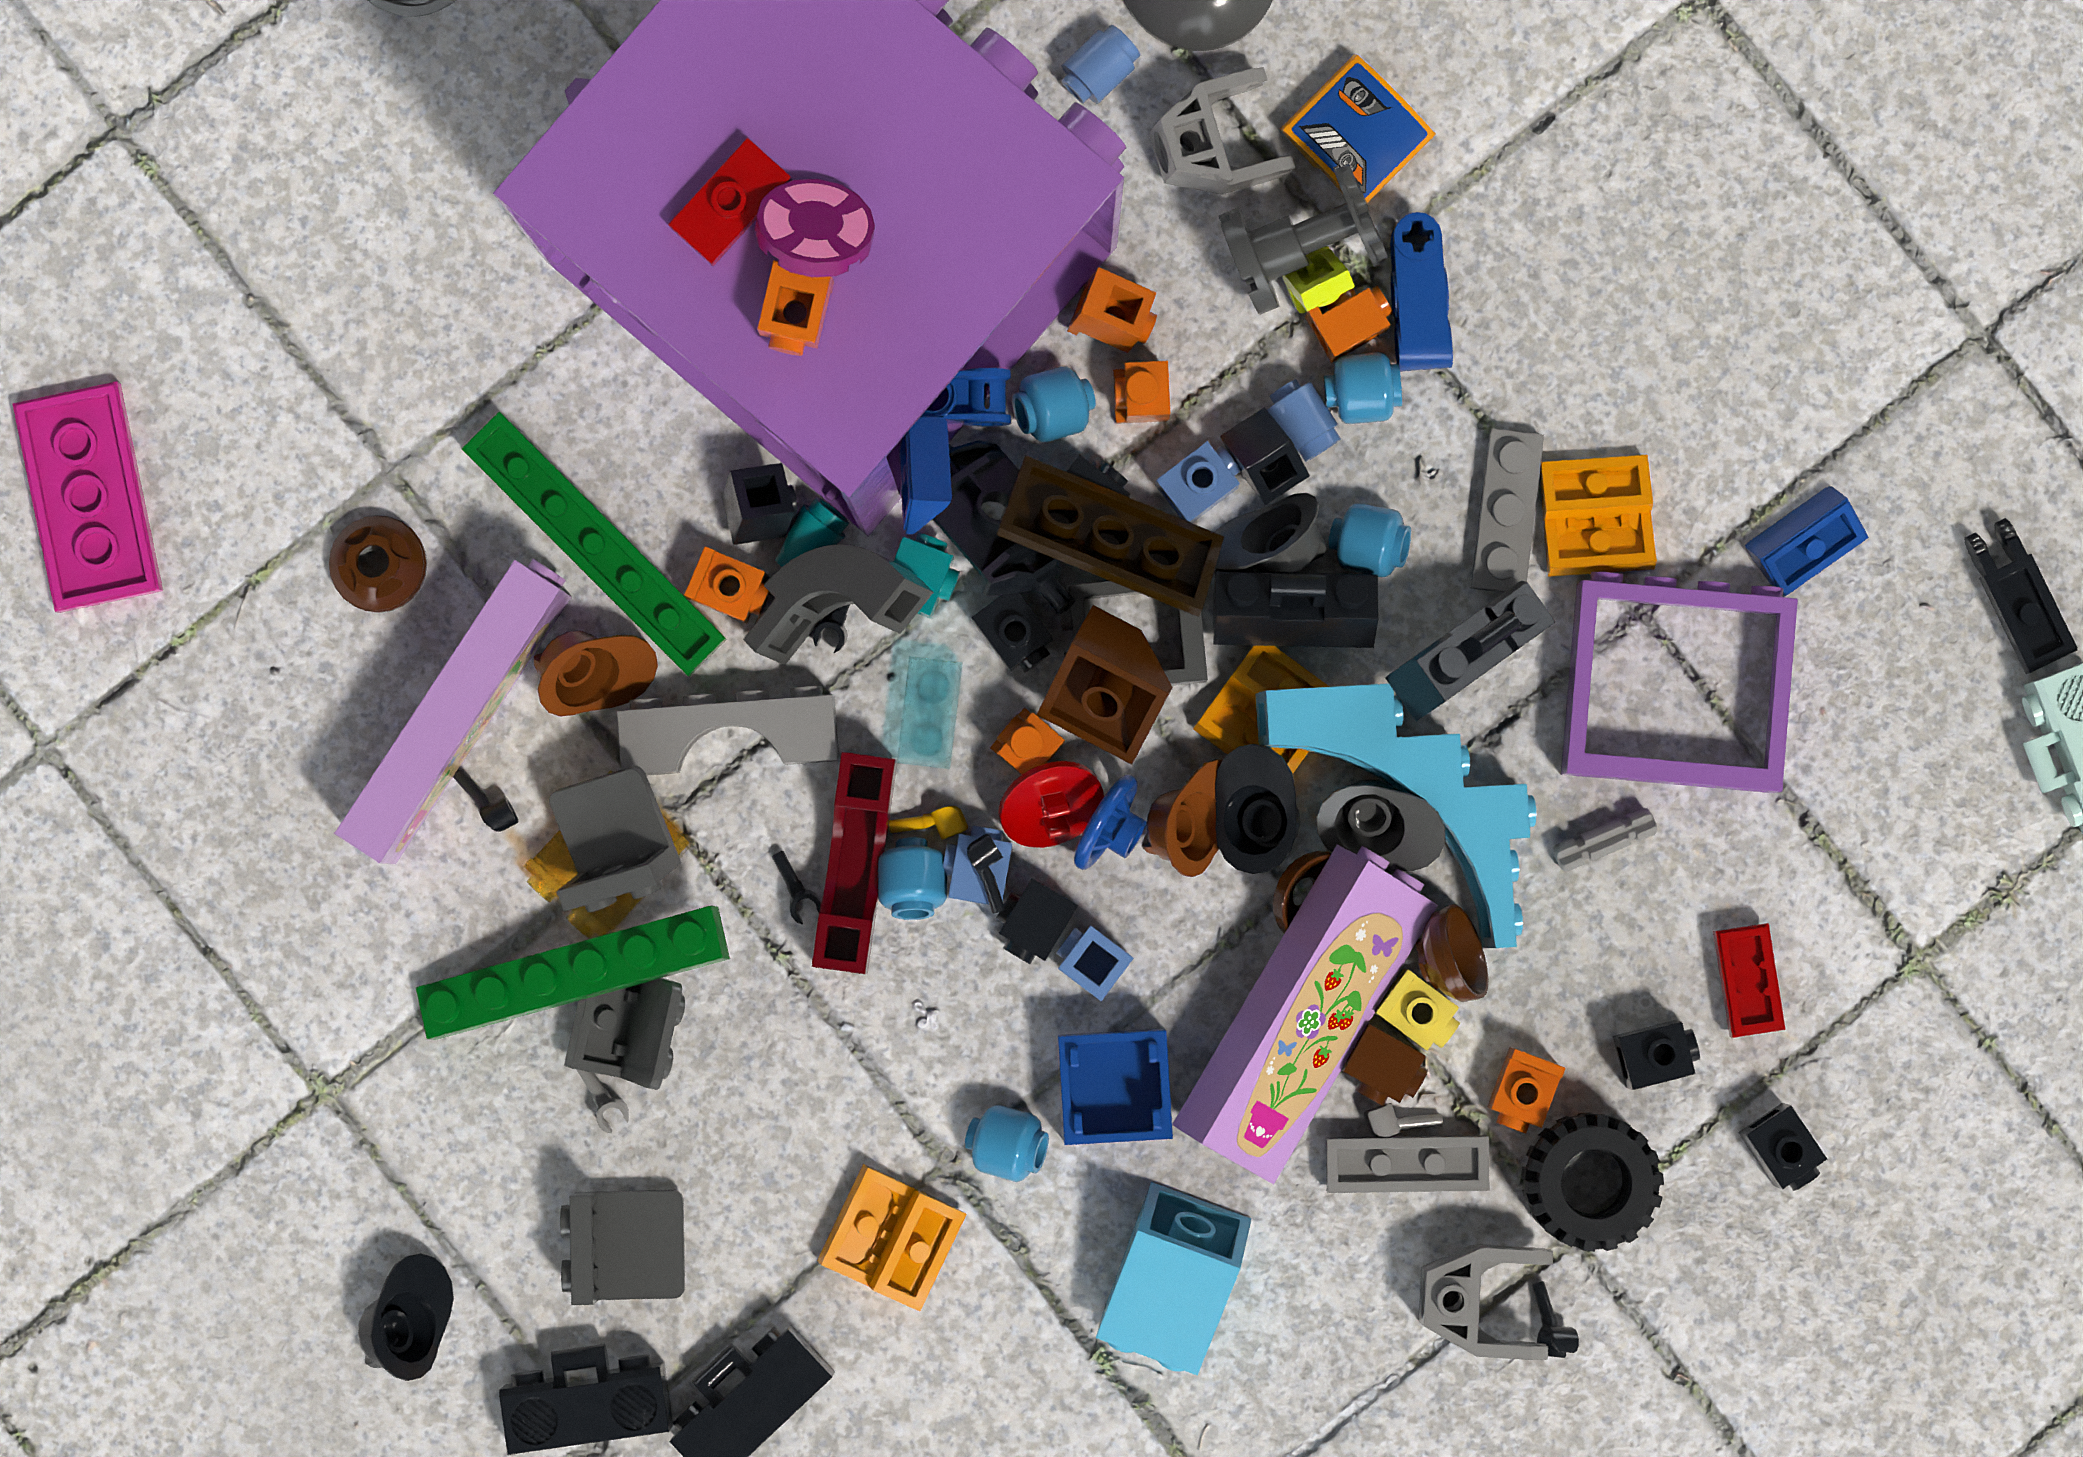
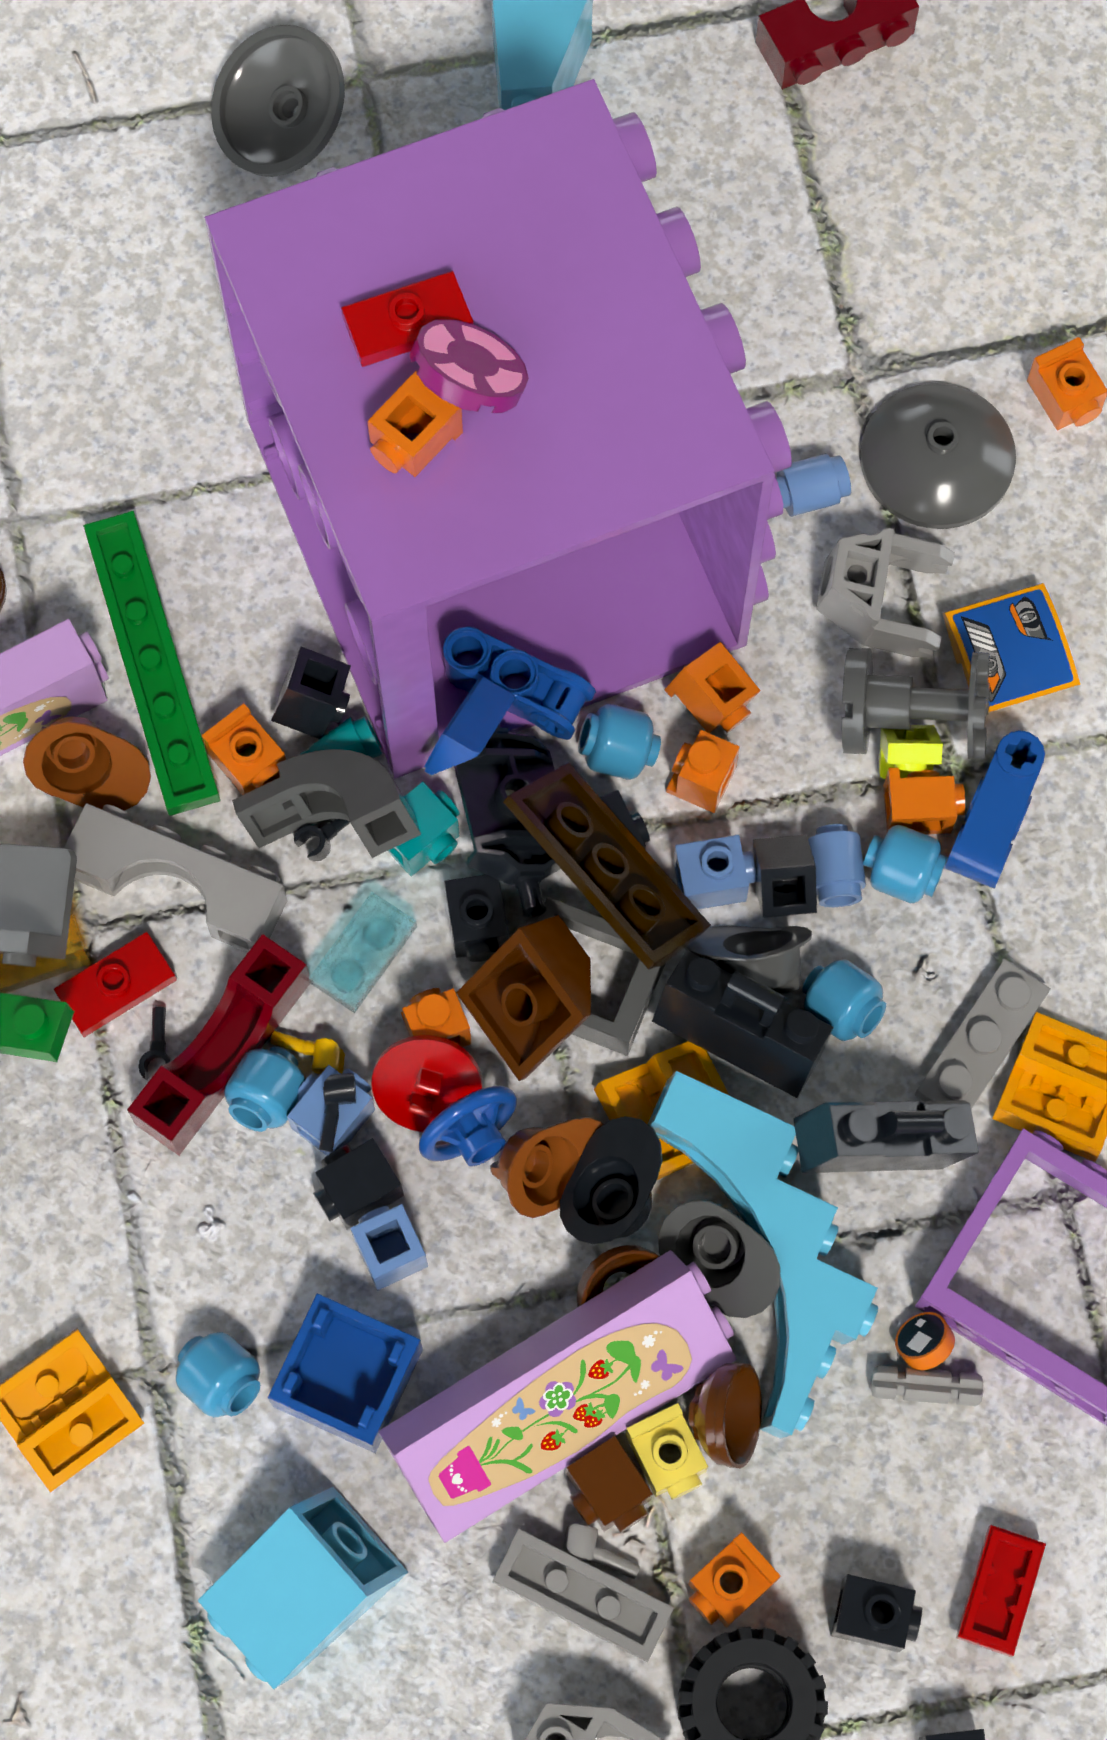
camera: 25 degrees right, 15 degrees down
(727, 852) = (115, 984): none -> red plate
(1586, 804) = (925, 1341): none -> tile

